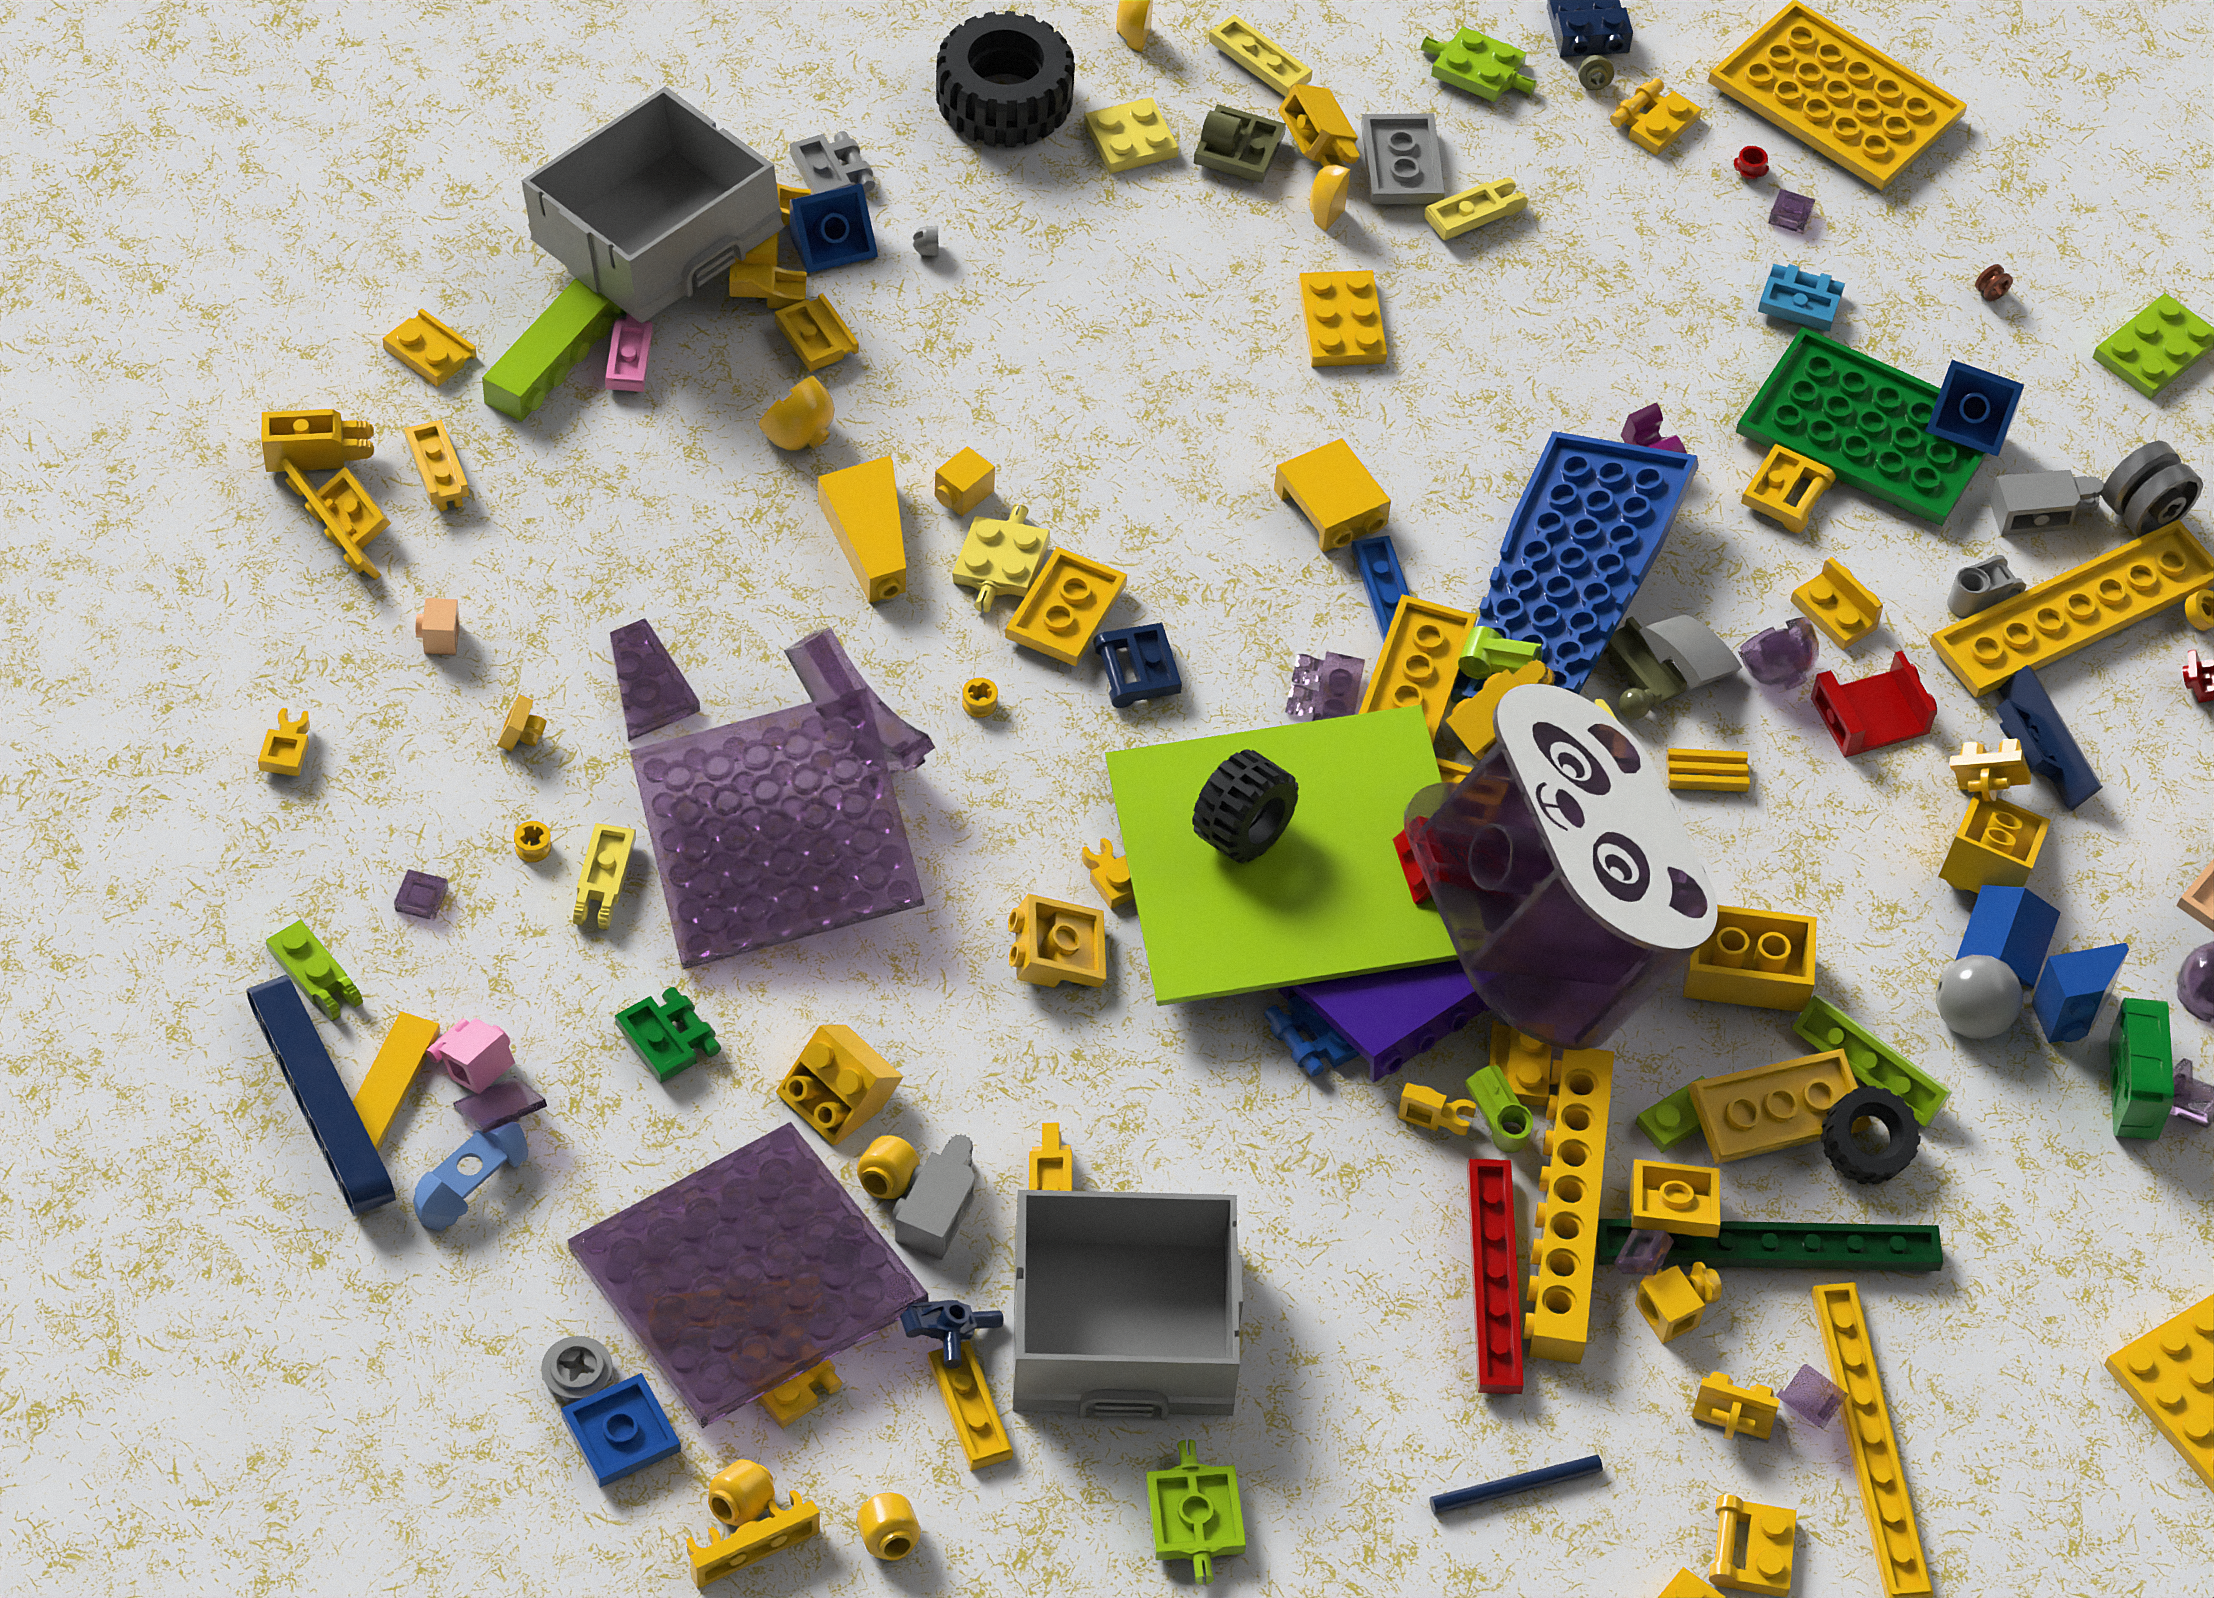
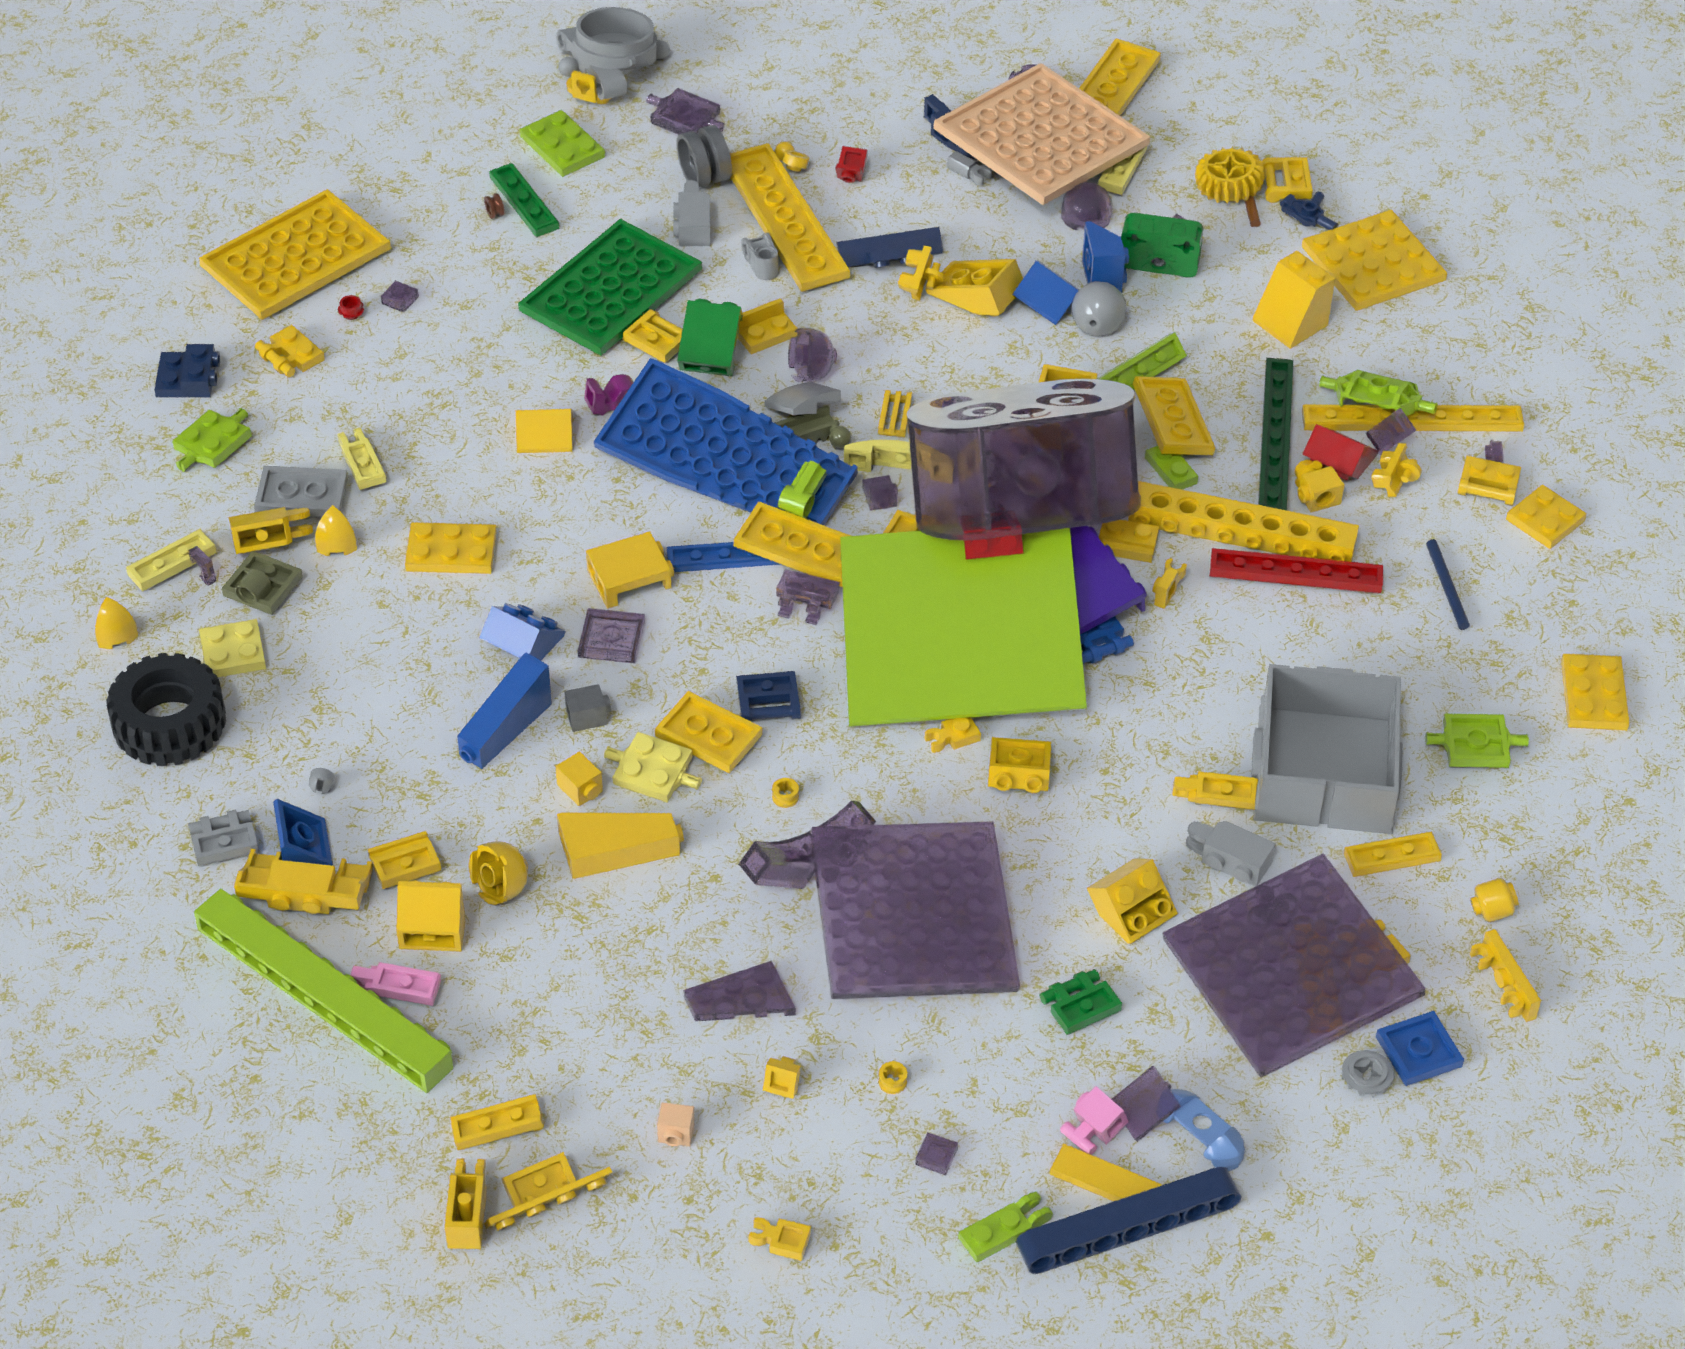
camera: 80 degrees left, 5 degrees down
(429, 347) = (362, 1126): yellow plate -> none
(604, 872) = (931, 1031): light yellow hinge -> none
(653, 204) = (282, 928): light grey piece -> none
(718, 358) = (430, 916): none -> yellow slope
(741, 1492) = (1471, 979): yellow head -> none
(887, 1167) = (1206, 876): yellow head -> none
(948, 1322) = (1339, 851): dark blue piece -> none
(1055, 393) = (507, 711): none -> blue slope
(1083, 475) = (586, 707): none -> flat silver brick
(1200, 398) = (520, 631): none -> slope
(1222, 495) = (611, 635): none -> clear purple tile
(1245, 806) = (945, 622): black tyre -> none
(1253, 83) = (205, 563): none -> clear purple tile
(1473, 716) = (850, 496): yellow hinge -> none
(1498, 1106) = (1178, 546): lime piece -> none
(1578, 384) = (544, 430): none -> yellow slope
(1593, 65) = (241, 374): olive plate -> none
(1644, 1252) = (1293, 487): plate -> none
(1675, 1198) = (1249, 469): yellow plate -> none
(1759, 1329) = (1339, 451): none -> red slope
(1778, 528) = (709, 337): none -> green panel
(1801, 296) = (490, 302): dark azure plate -> none
(1814, 1552) = (1494, 451): none -> clear purple plate
(1875, 708) = (853, 322): red panel -> none
(1884, 1401) = (1378, 390): none -> lime plate
(1898, 1120) = (1195, 386): black tyre -> none
(1975, 408) = (621, 224): blue slope -> none
(2025, 318) = (524, 200): none -> green tile
(2063, 1255) = (1295, 300): none -> yellow slope

